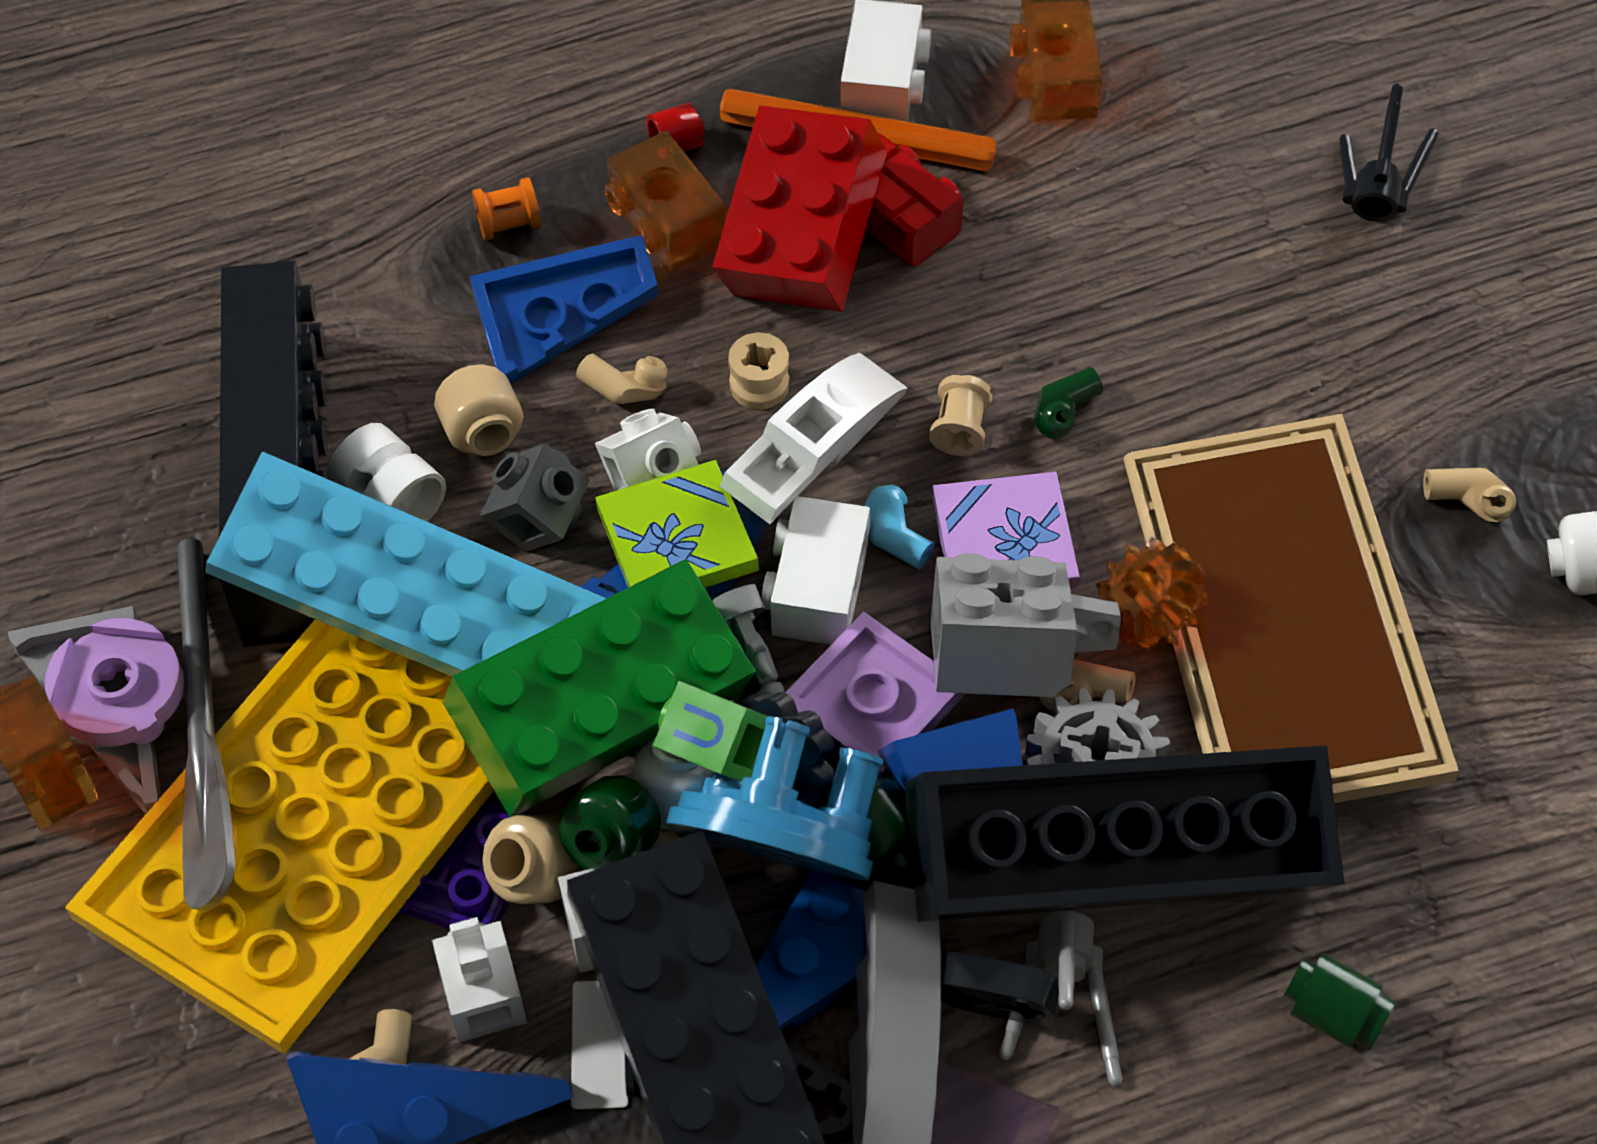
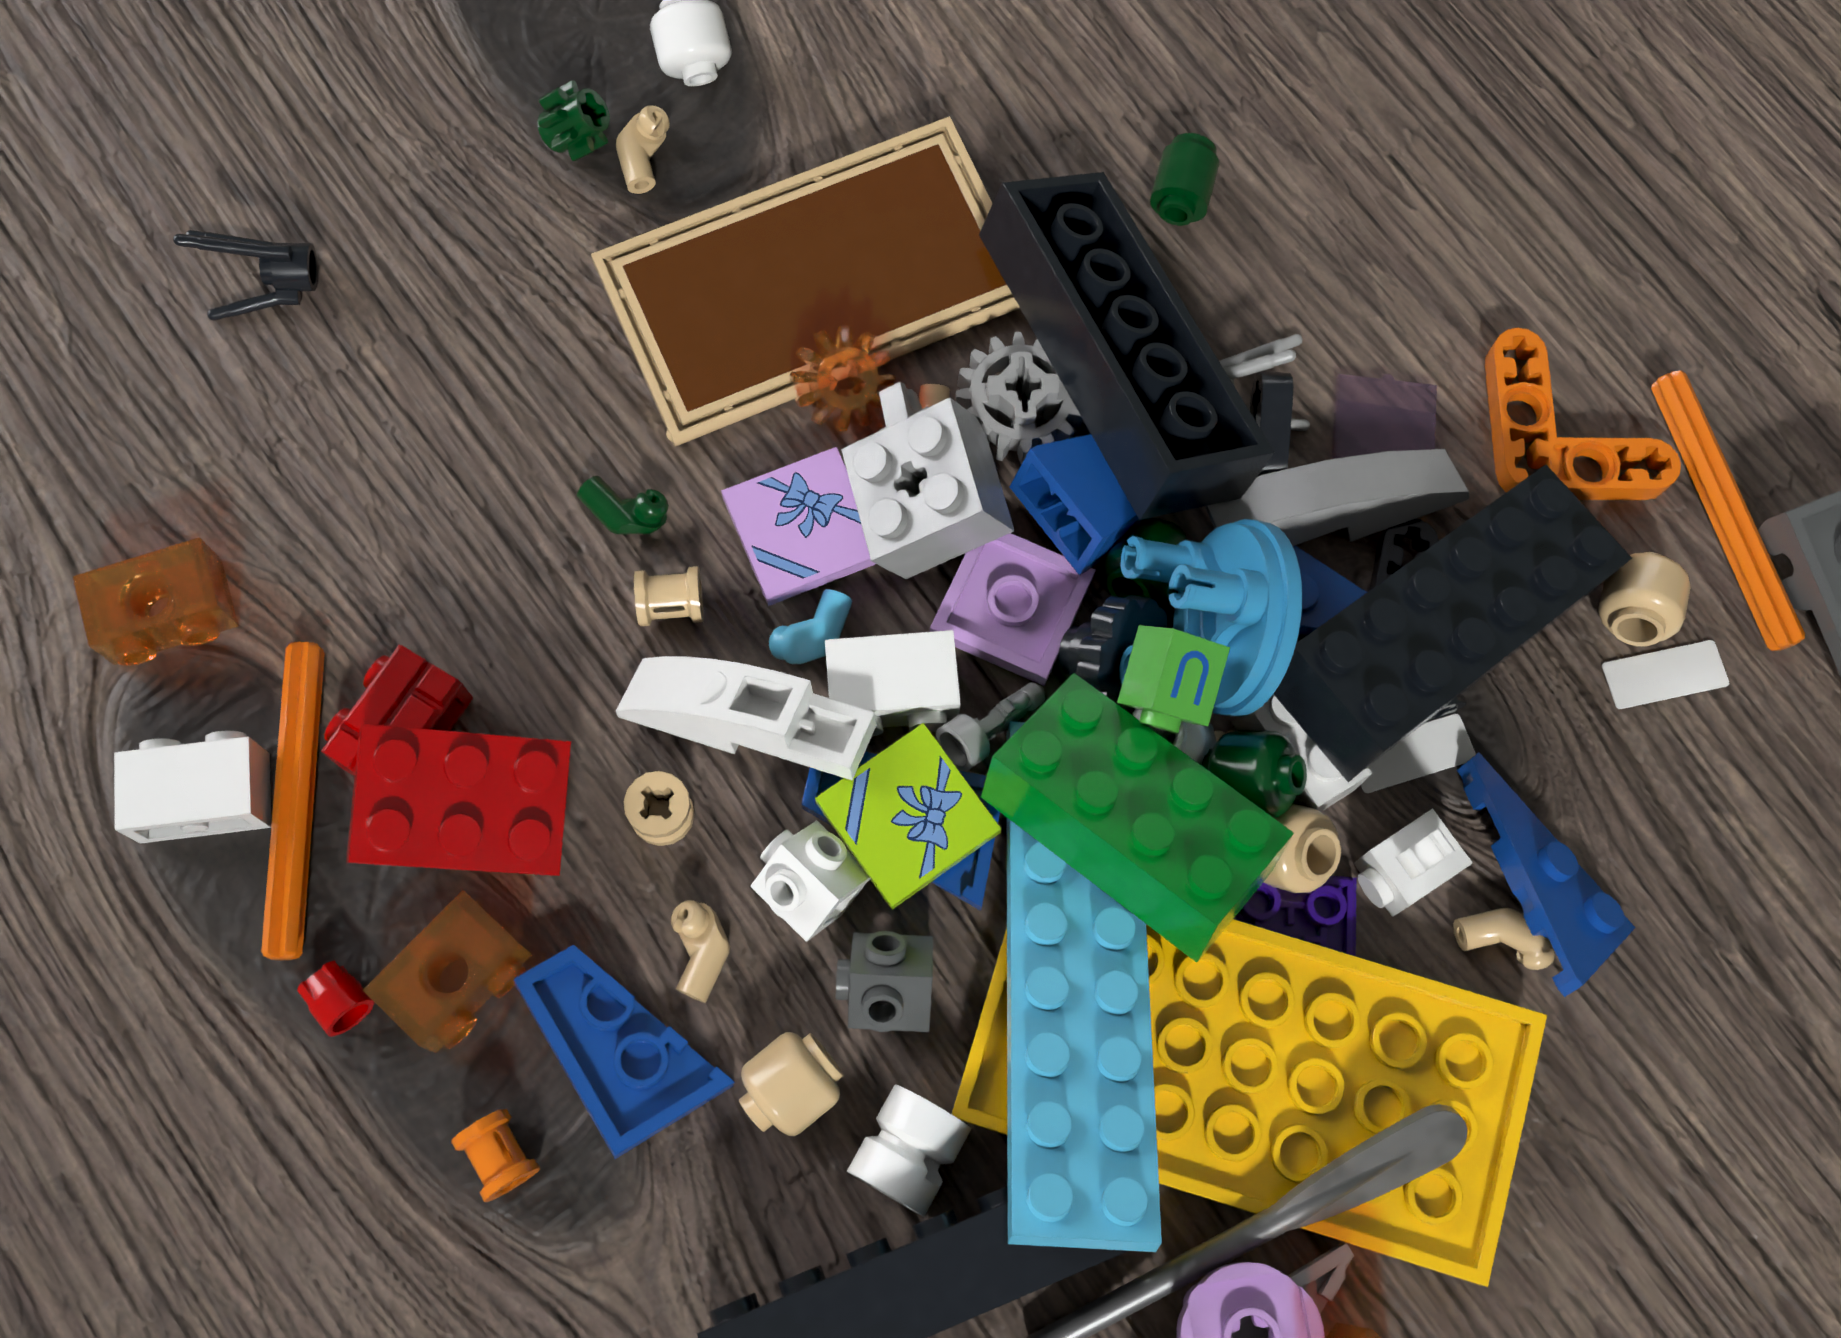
camera: 110 degrees left, 15 degrees up
(1521, 430) = (573, 120): none -> dark green gear

